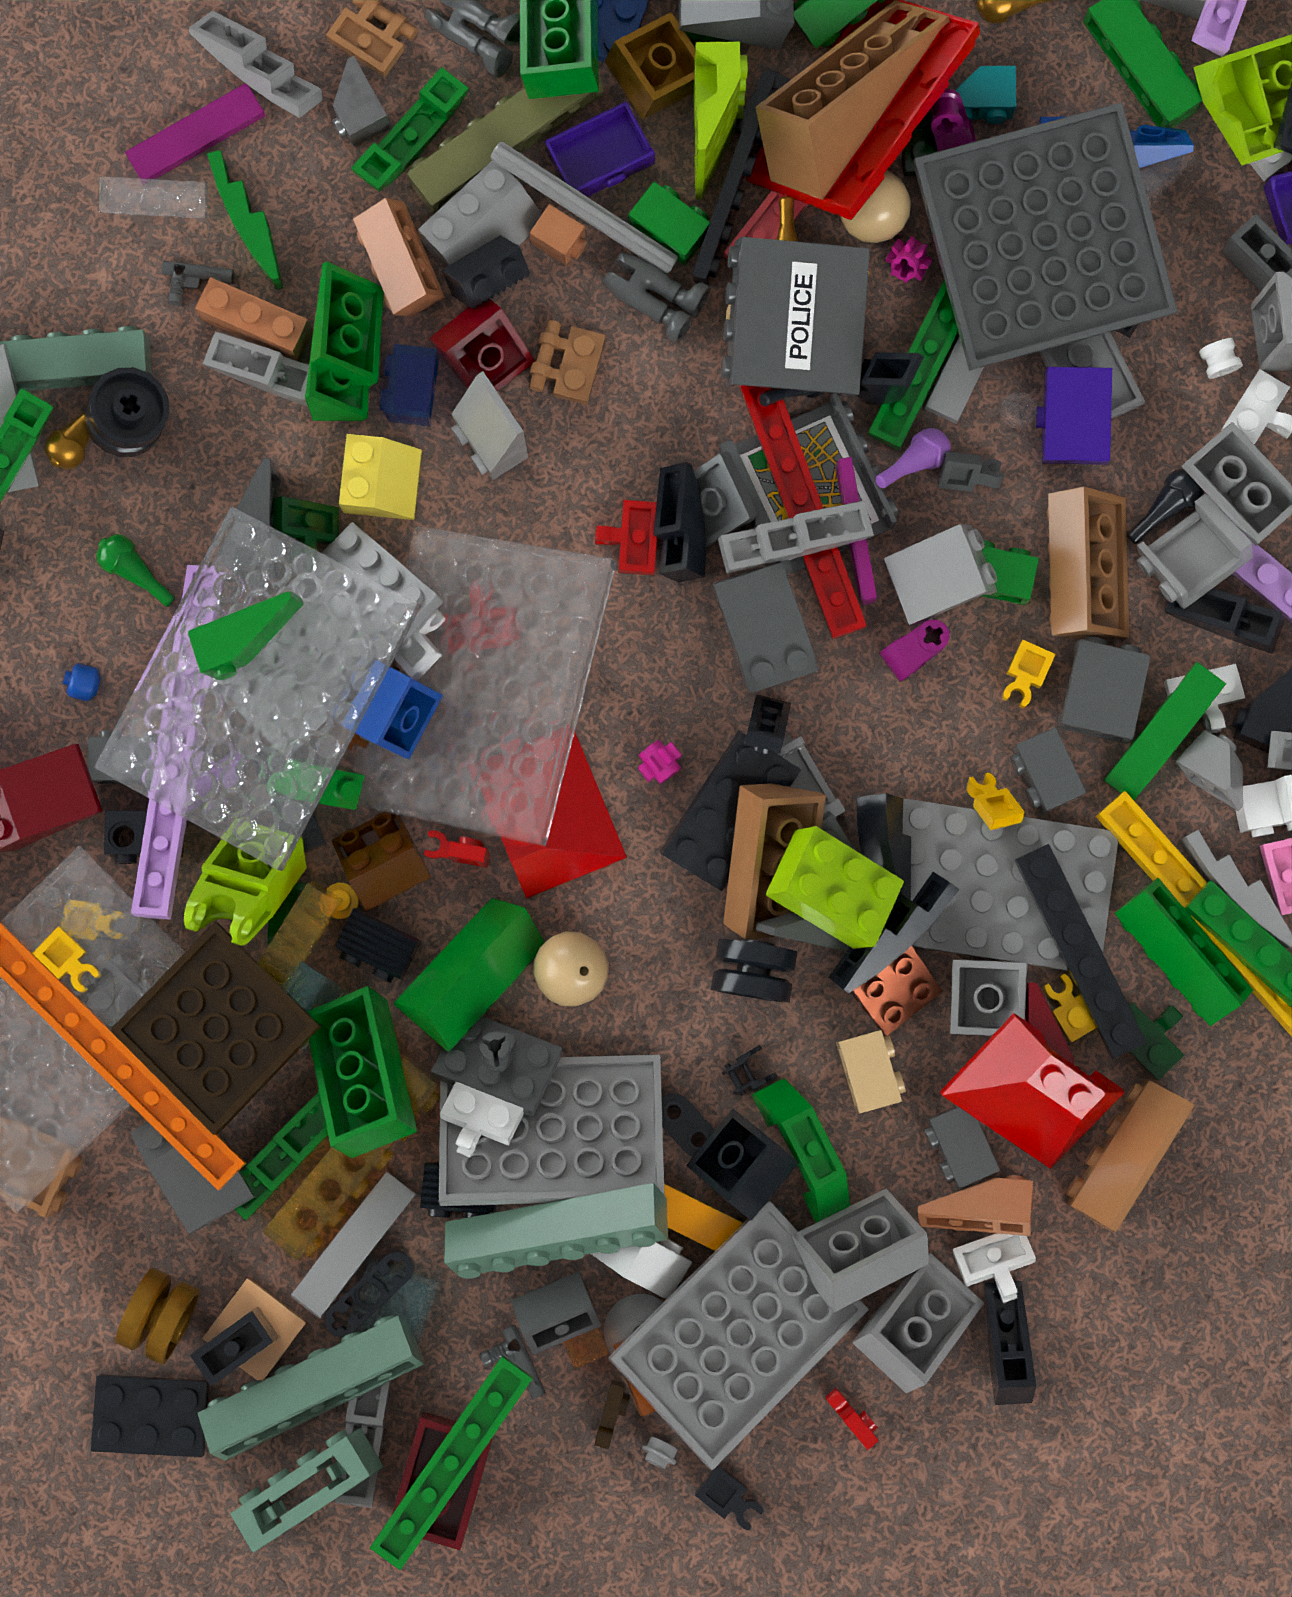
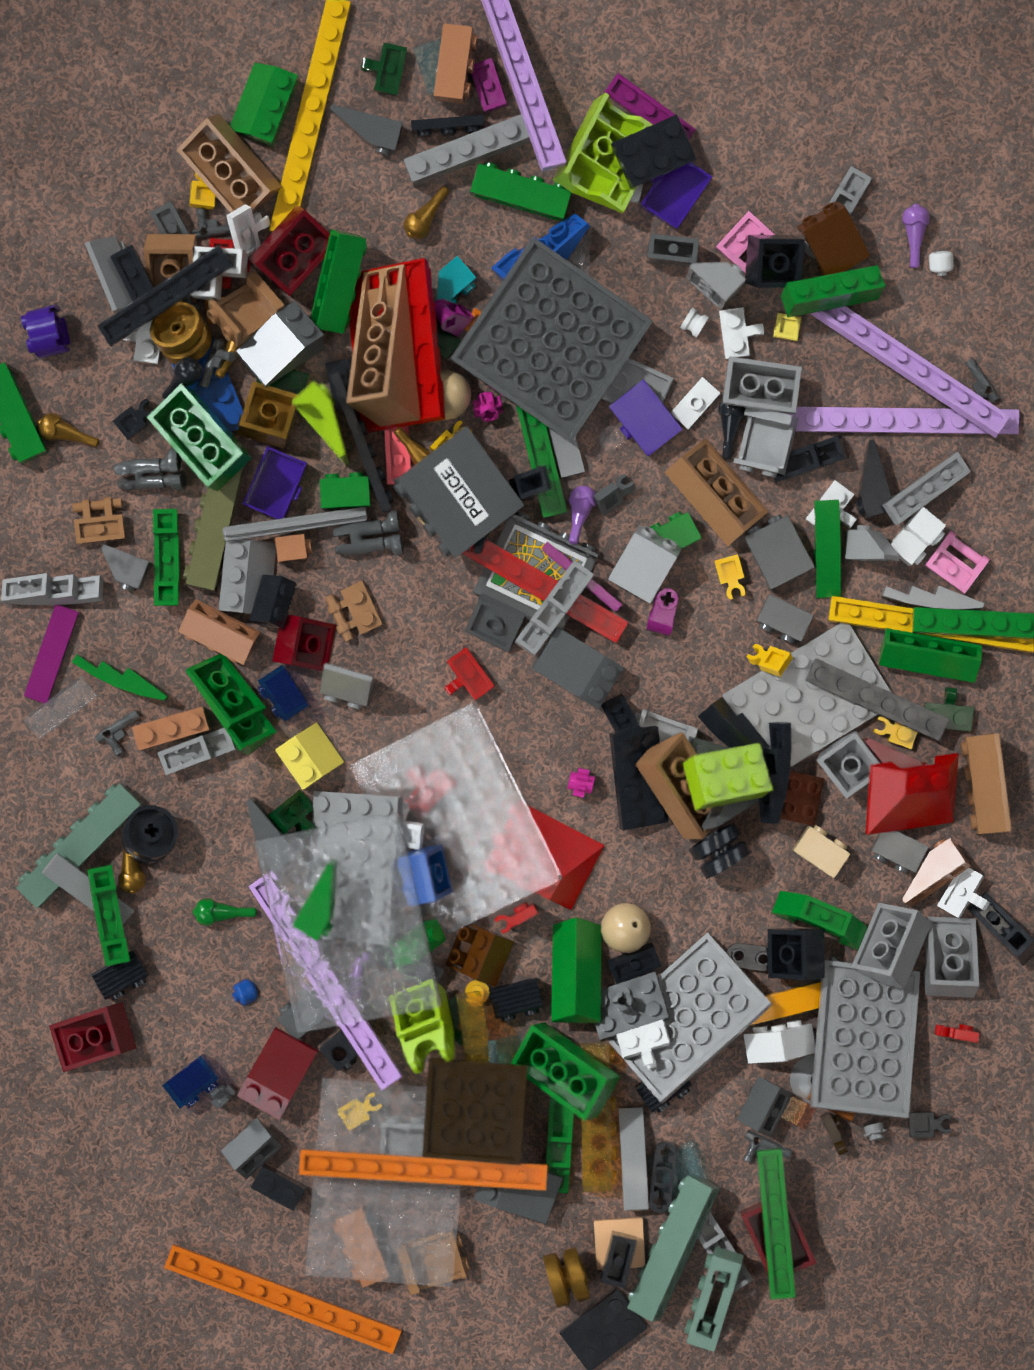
camera: 40 degrees left, 5 degrees up
(63, 956) = (365, 1140): yellow plate -> none
(546, 1019) = (634, 964): none -> black plate
(556, 1231) = (731, 1066): sand green brick -> none
(680, 524) = (486, 649): black slope -> none
(741, 1061) = (751, 900): black piece -> none
(1146, 449) = (695, 403): none -> white plate

